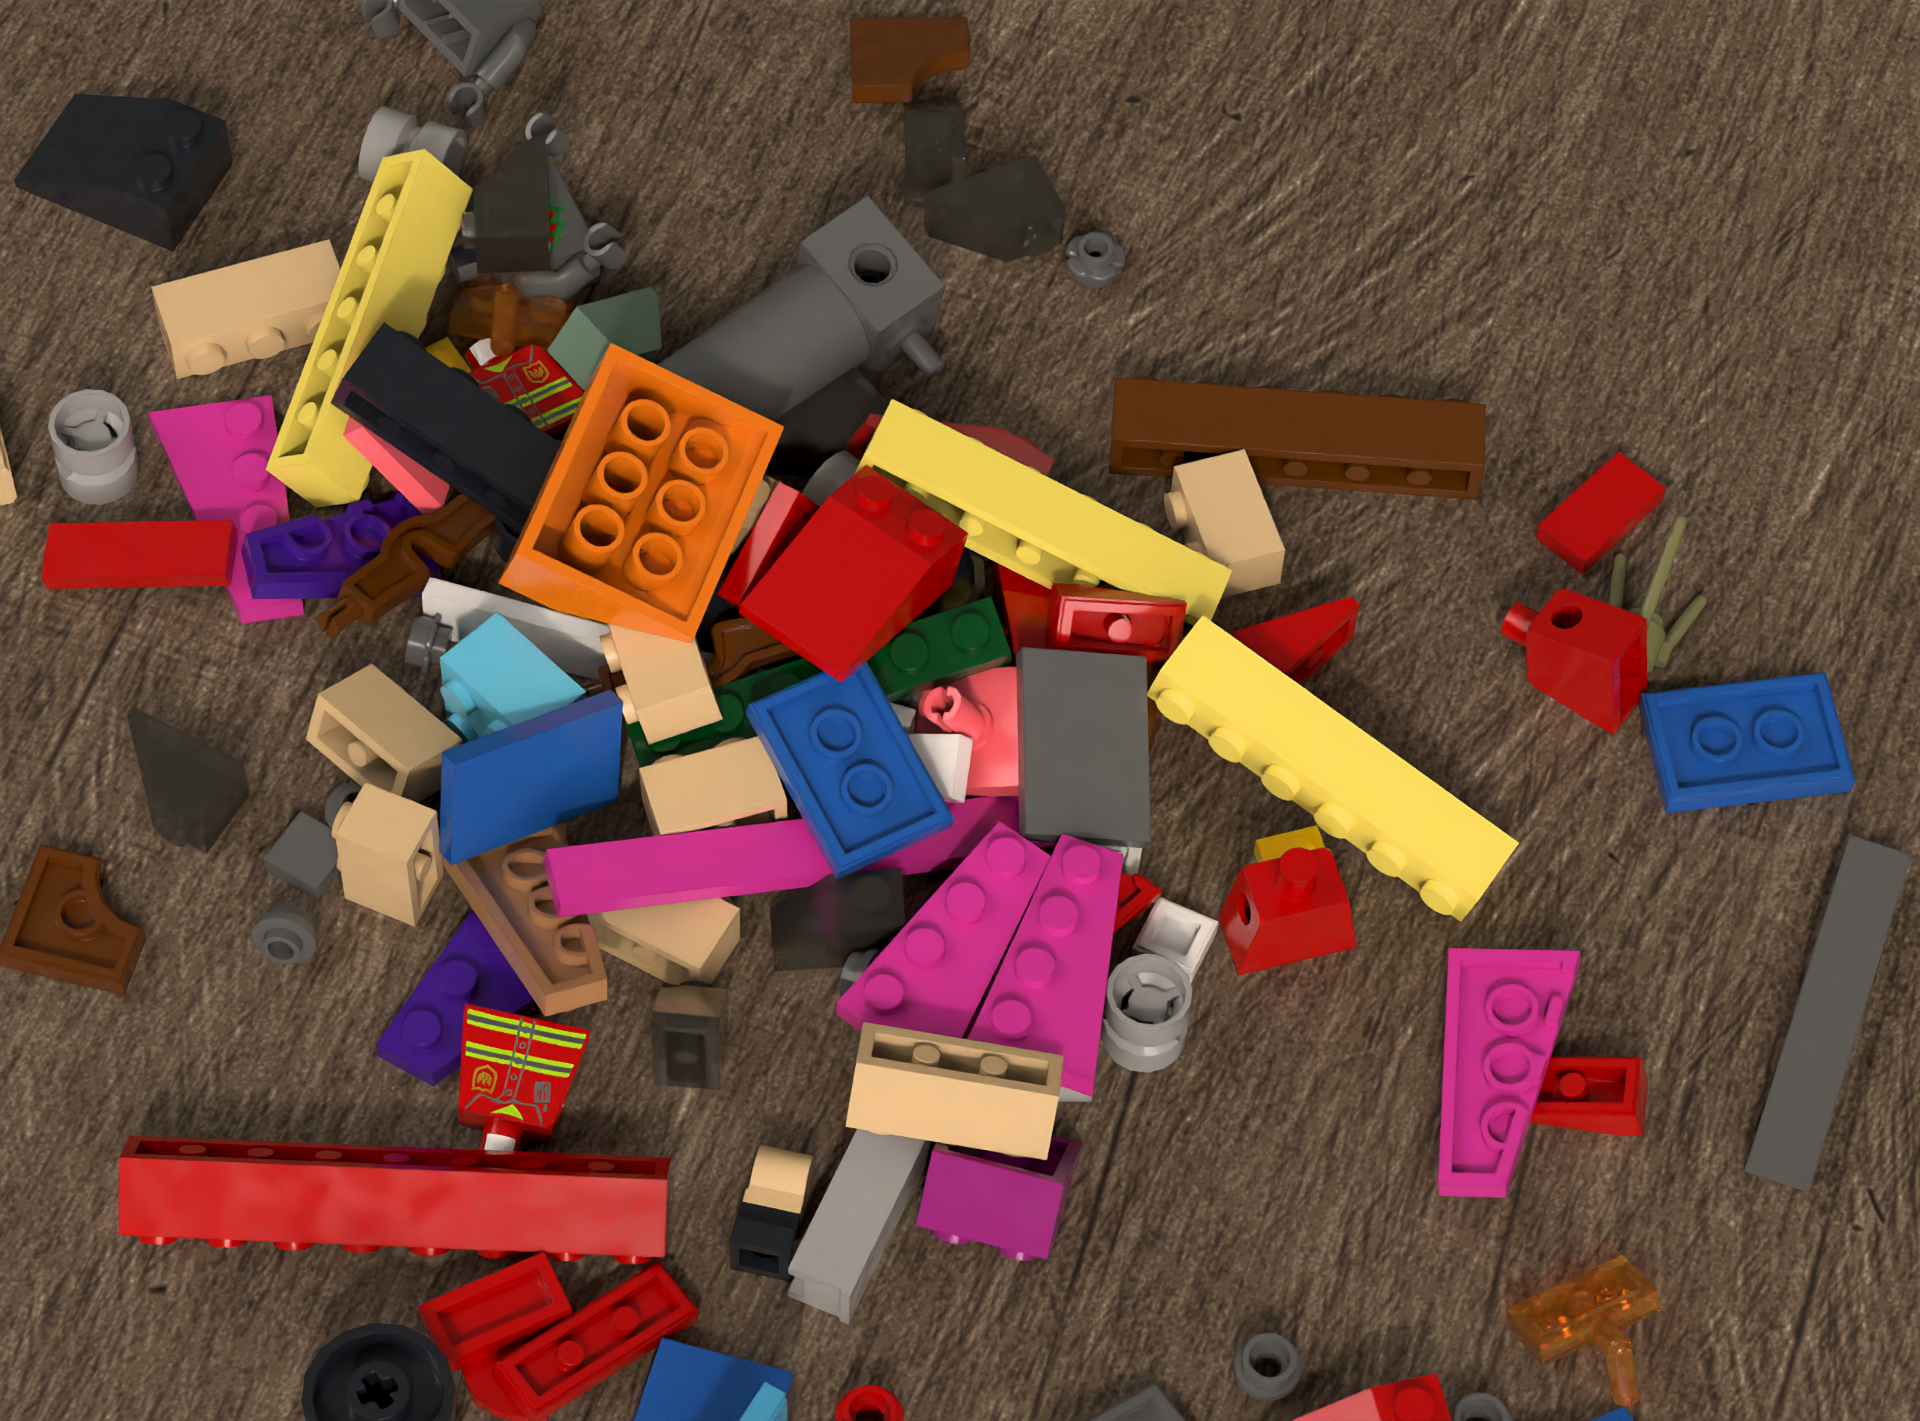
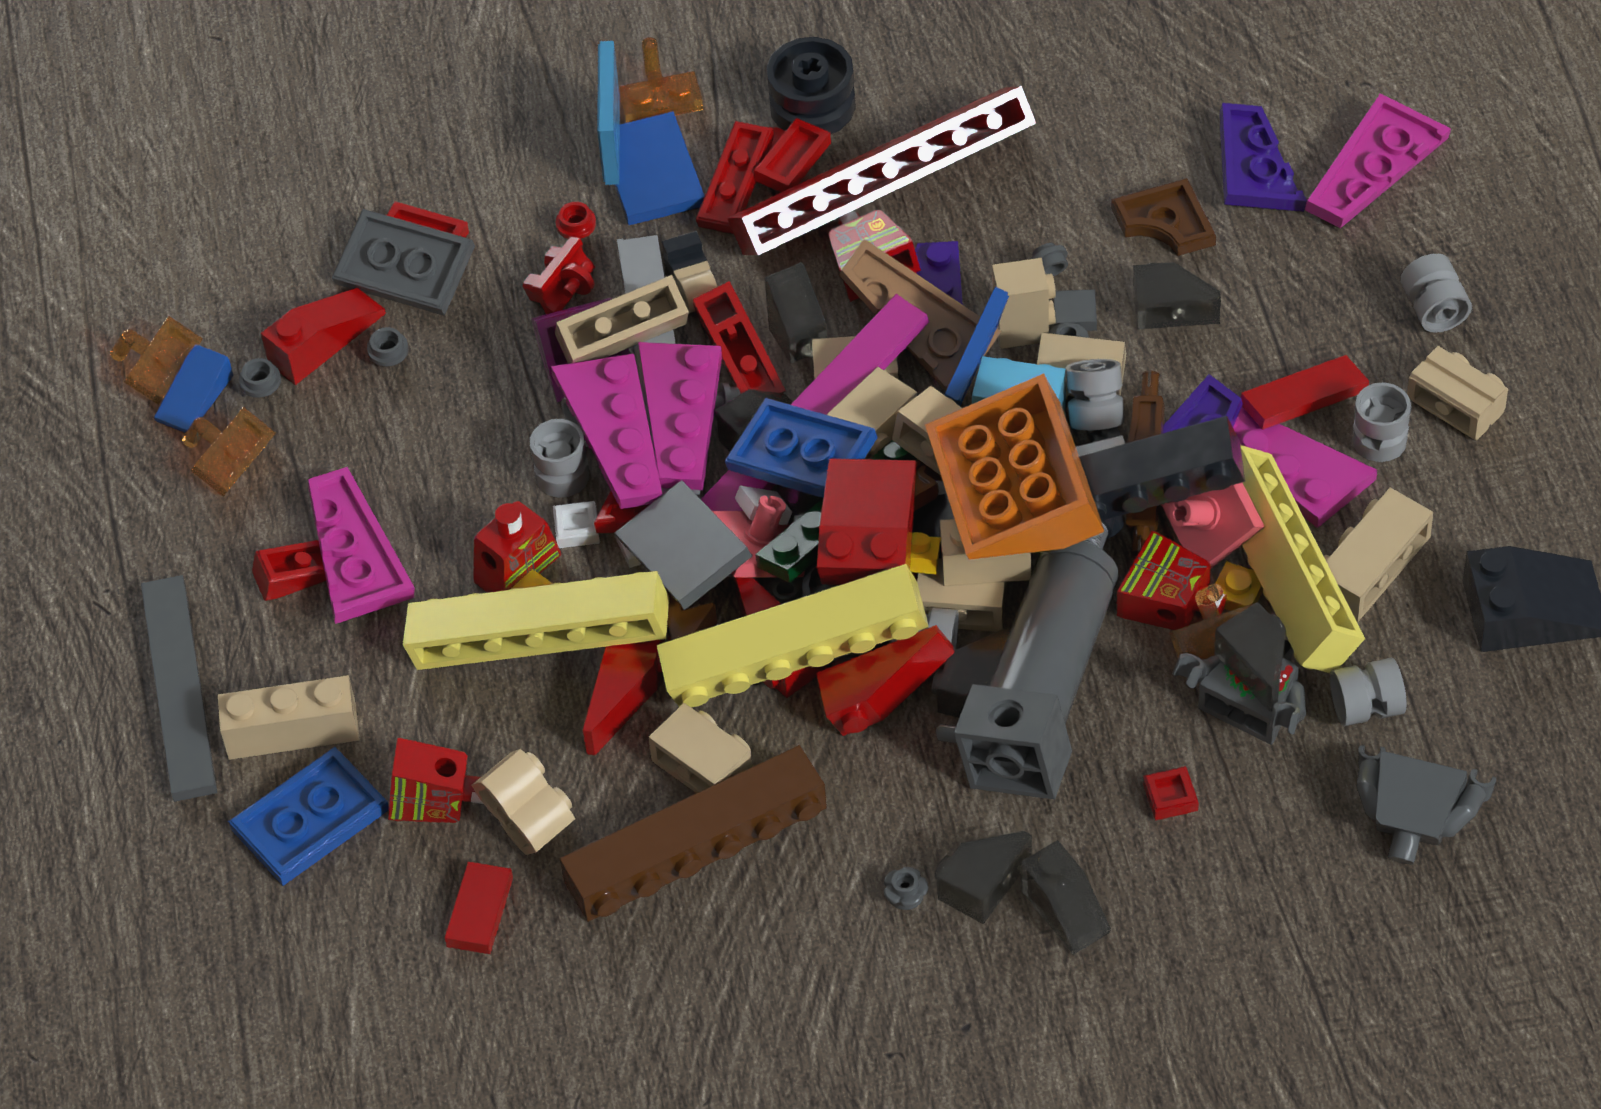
camera: 155 degrees right, 5 degrees down
(419, 636) = (1095, 396): none -> light grey wheel
(624, 320) = (1138, 632): sand green slope -> none
(716, 199) = (1170, 793): none -> red tile
(774, 531) = (930, 517): red tile -> none
(791, 1058) = (740, 345): none -> red slope
(901, 52) = (1133, 946): reddish brown tile -> none
(929, 1337) = (565, 274): none -> red hips
(1114, 622) = (725, 604): red slope -> none
(1482, 565) = (524, 801): none -> tan brick
(1658, 644) = (408, 835): olive plant -> none
(1712, 857) = (288, 717): none -> tan brick

